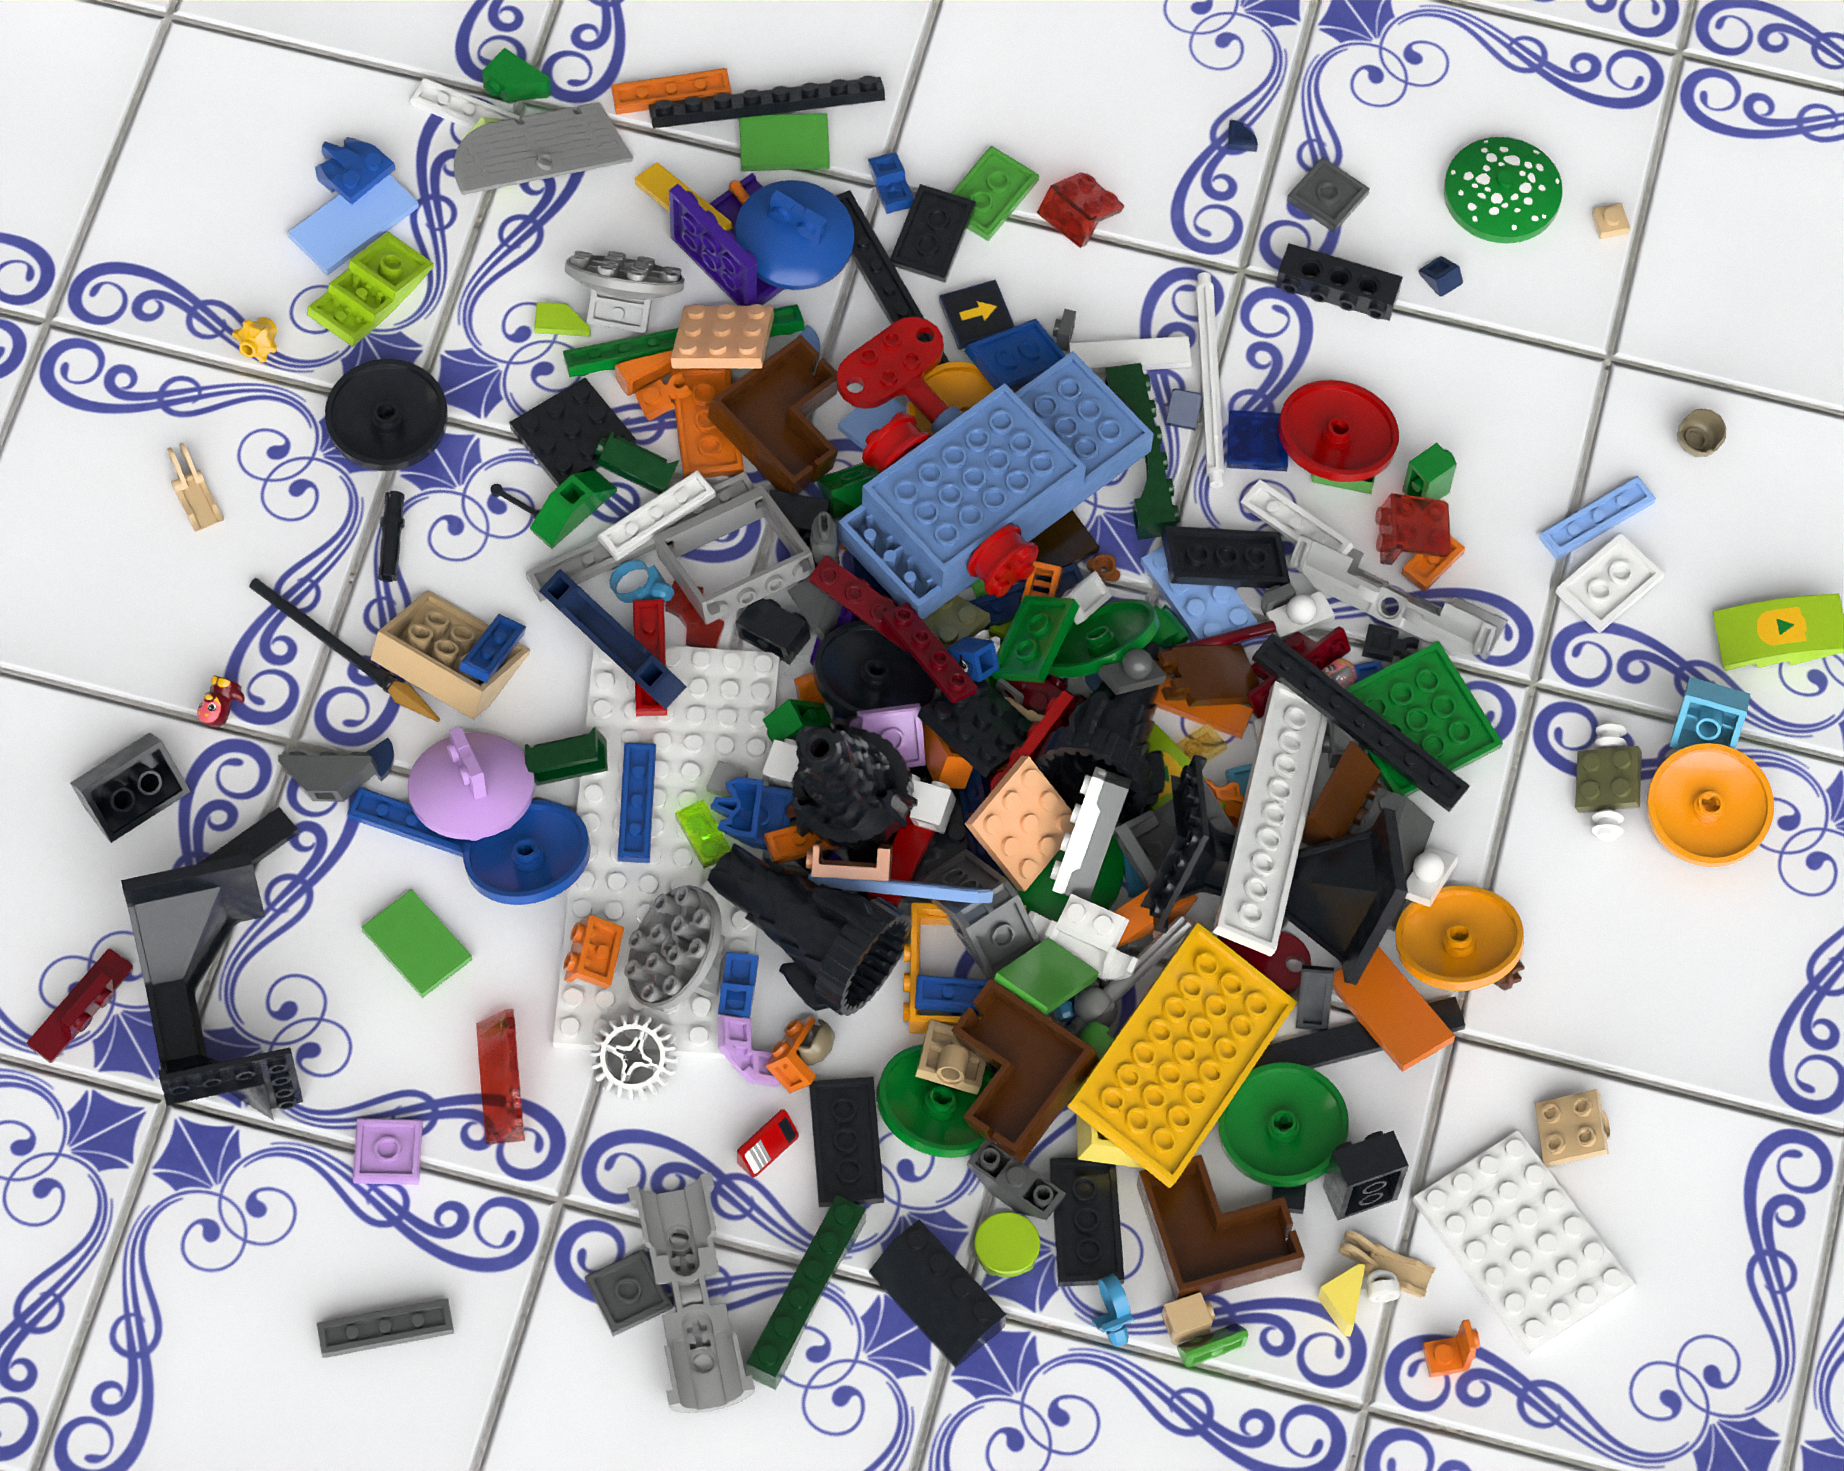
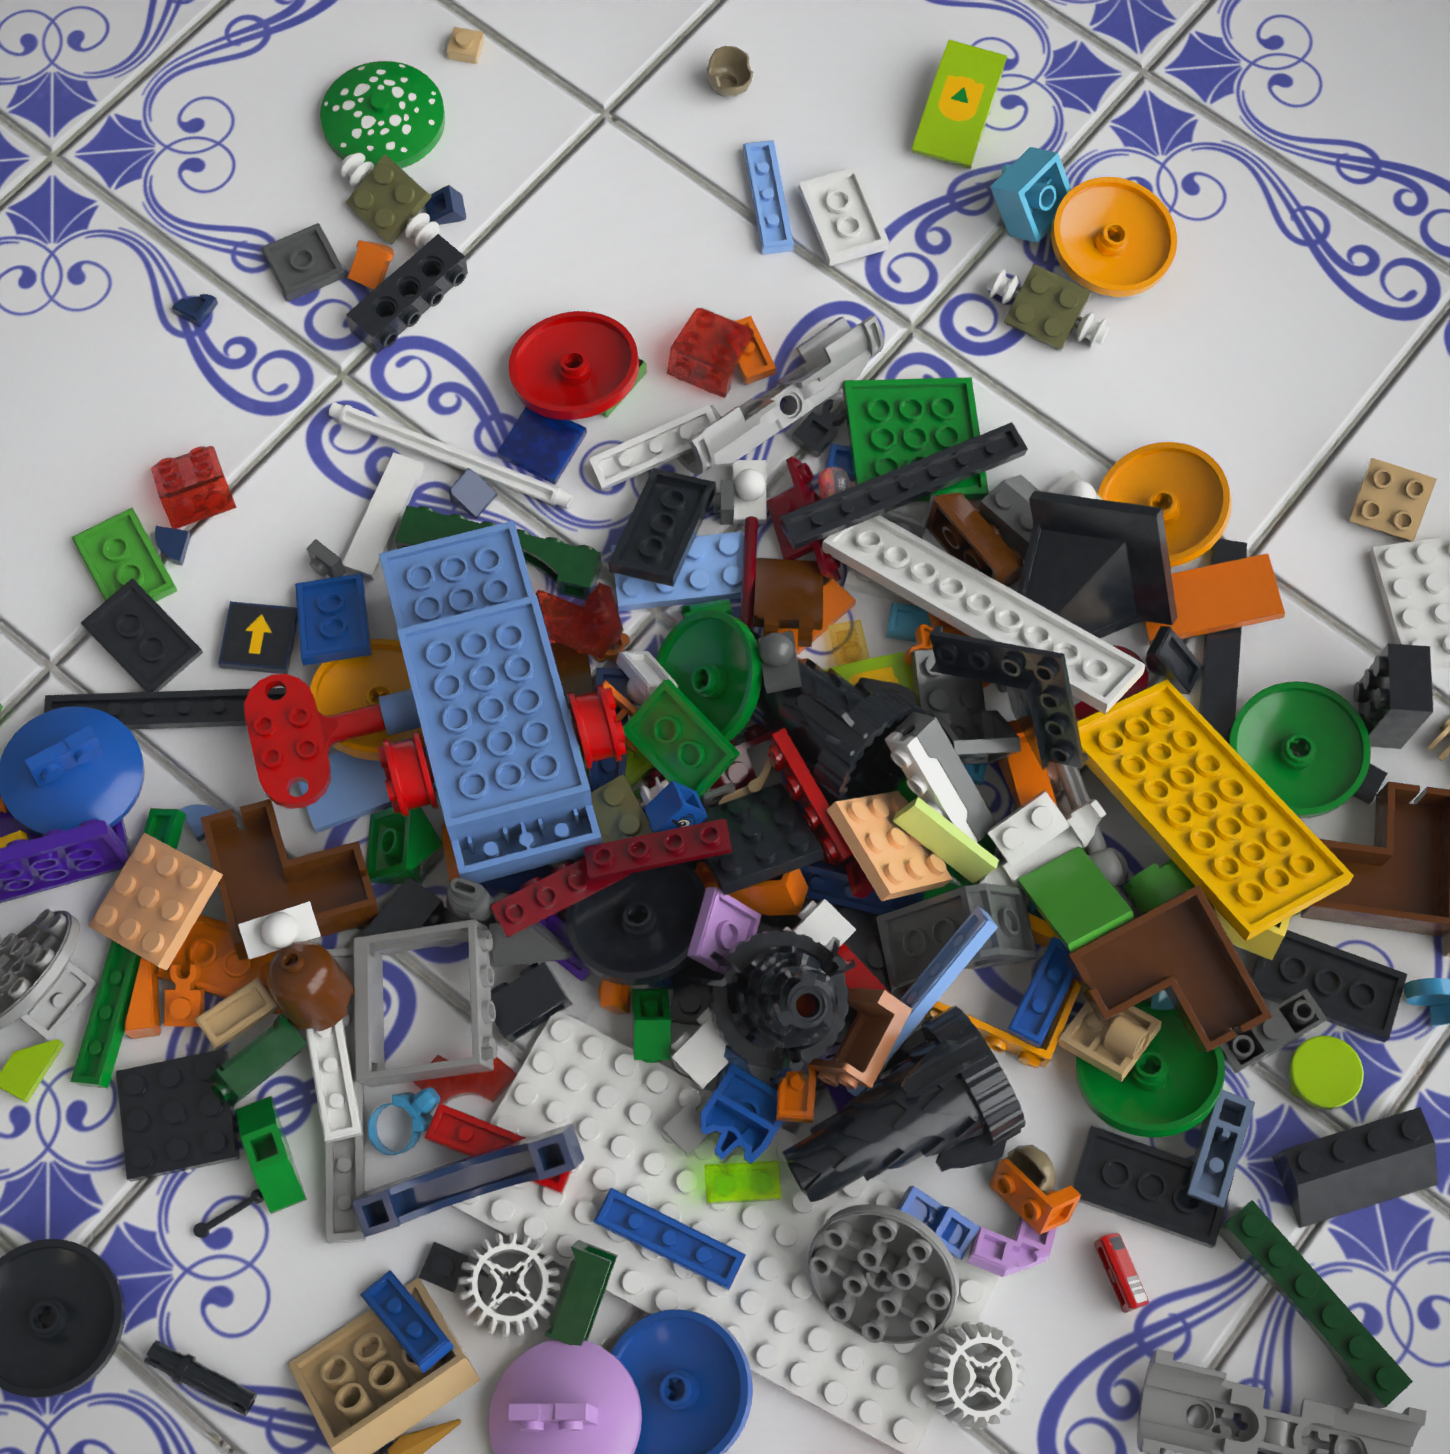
camera: 65 degrees left, 5 degrees up
(540, 704) = (522, 1296): none -> white gear
(545, 667) = (444, 1268): none -> black plate
(593, 951) = (833, 1367): orange bracket -> none
(666, 435) = (236, 1013): none -> tan tile
(707, 466) = (309, 986): none -> reddish brown cylinder
(737, 424) = (279, 930): none -> white tile
(891, 182) = (55, 653): blue slope -> none
(899, 1173) = (1219, 1148): none -> sand blue slope
(1024, 218) = (173, 543): none -> dark blue tile
(1048, 864) = (945, 840): none -> yellowish green tile
(1103, 529) = (586, 627): none -> clear red bracket
(1353, 242) = (371, 263): none -> orange tile
(1419, 228) = (388, 199): none -> olive plate
(1430, 473) = (665, 307): green brick -> none

